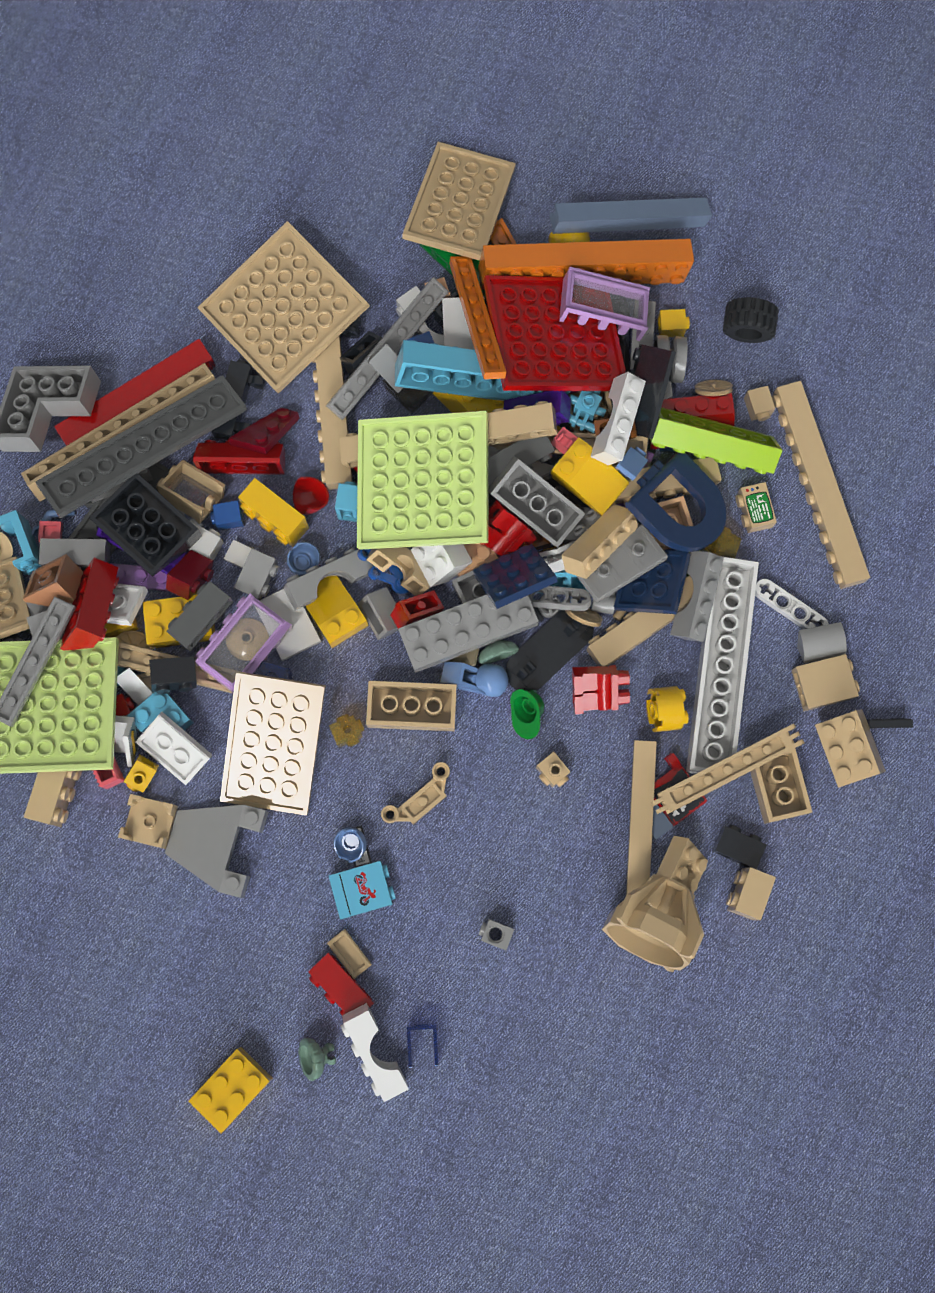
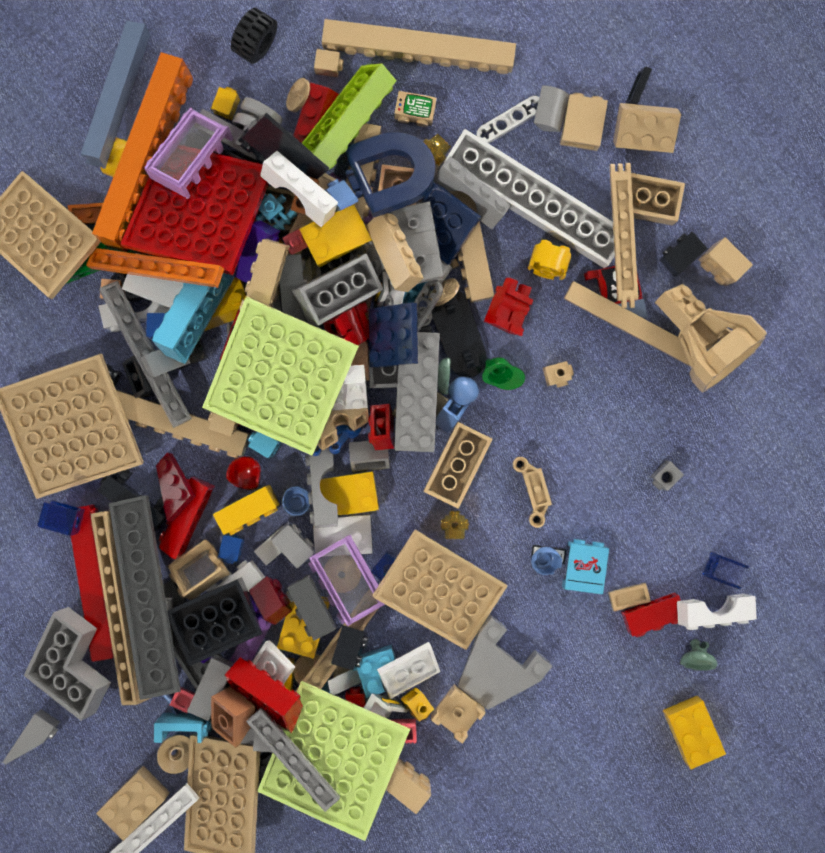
camera: 65 degrees left, 10 degrees up
(188, 335) = (60, 518): none -> clear blue piece

